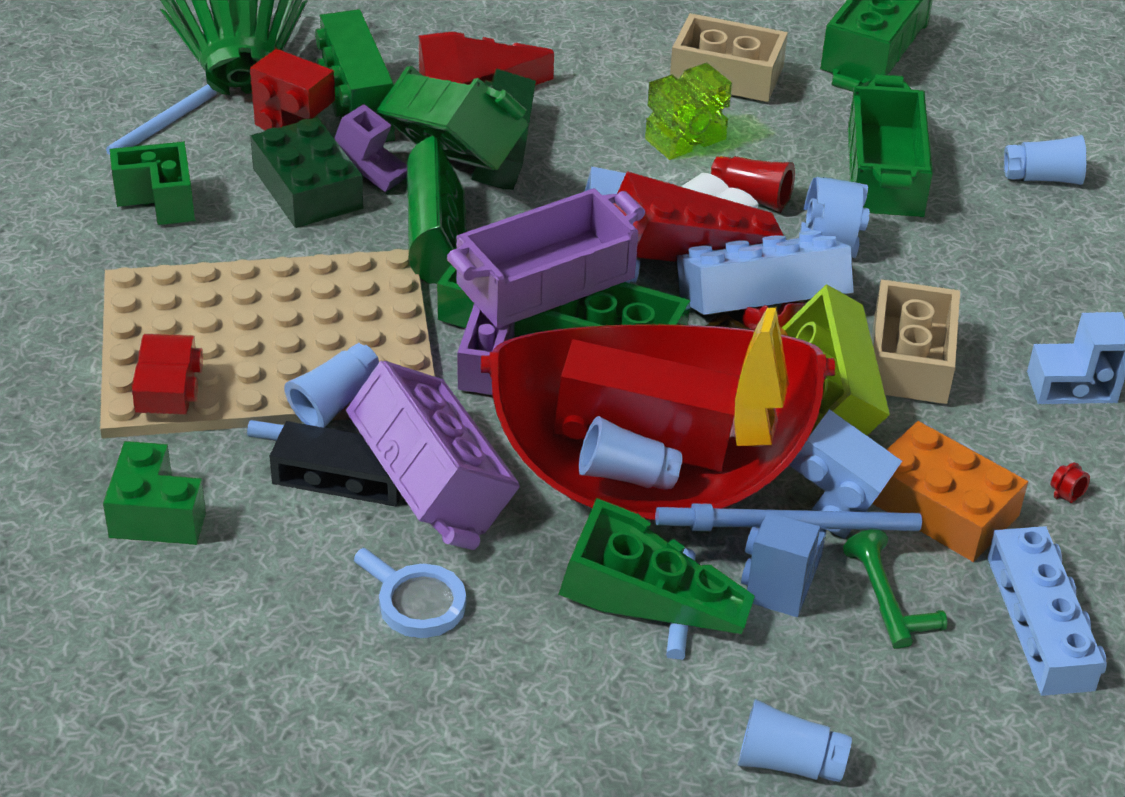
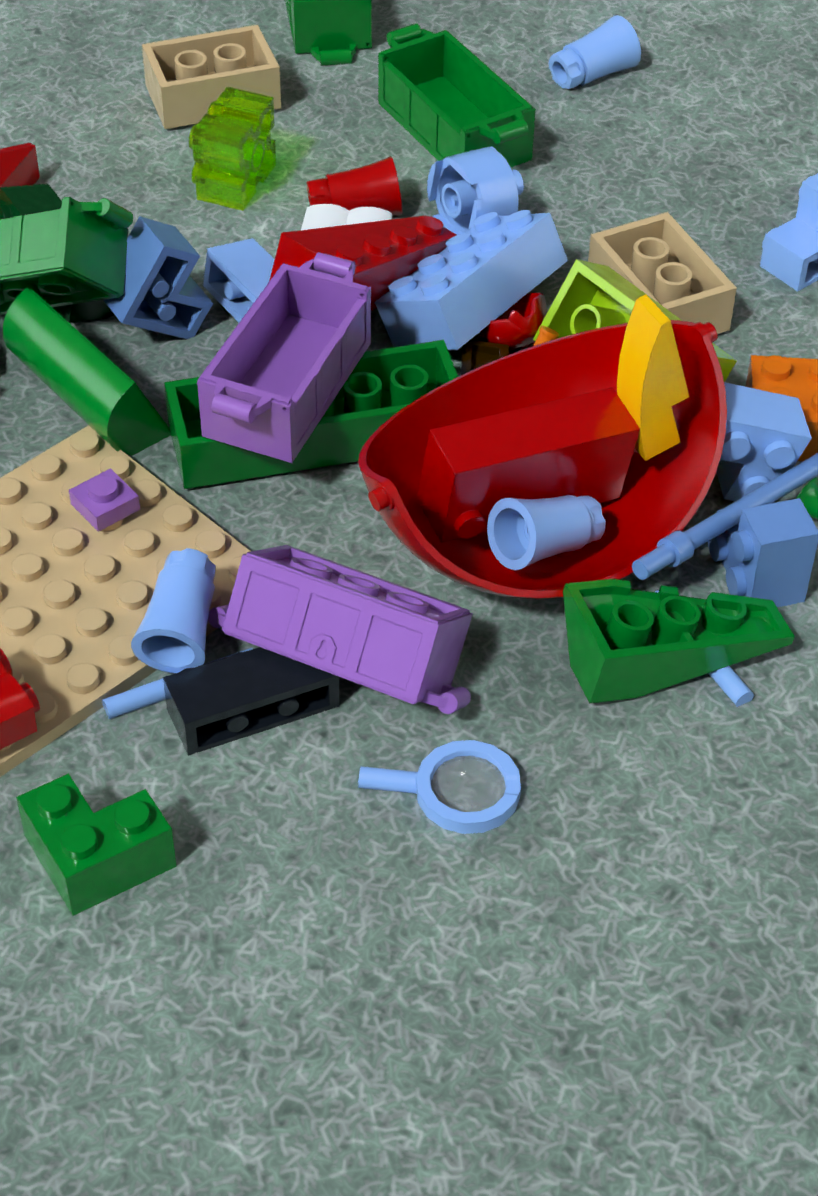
camera: 35 degrees left, 5 degrees up
(367, 297) = (104, 499): none -> medium lavender plate
(478, 340) = (283, 497): medium lavender brick -> none
(530, 171) = (158, 282): none -> medium blue brick

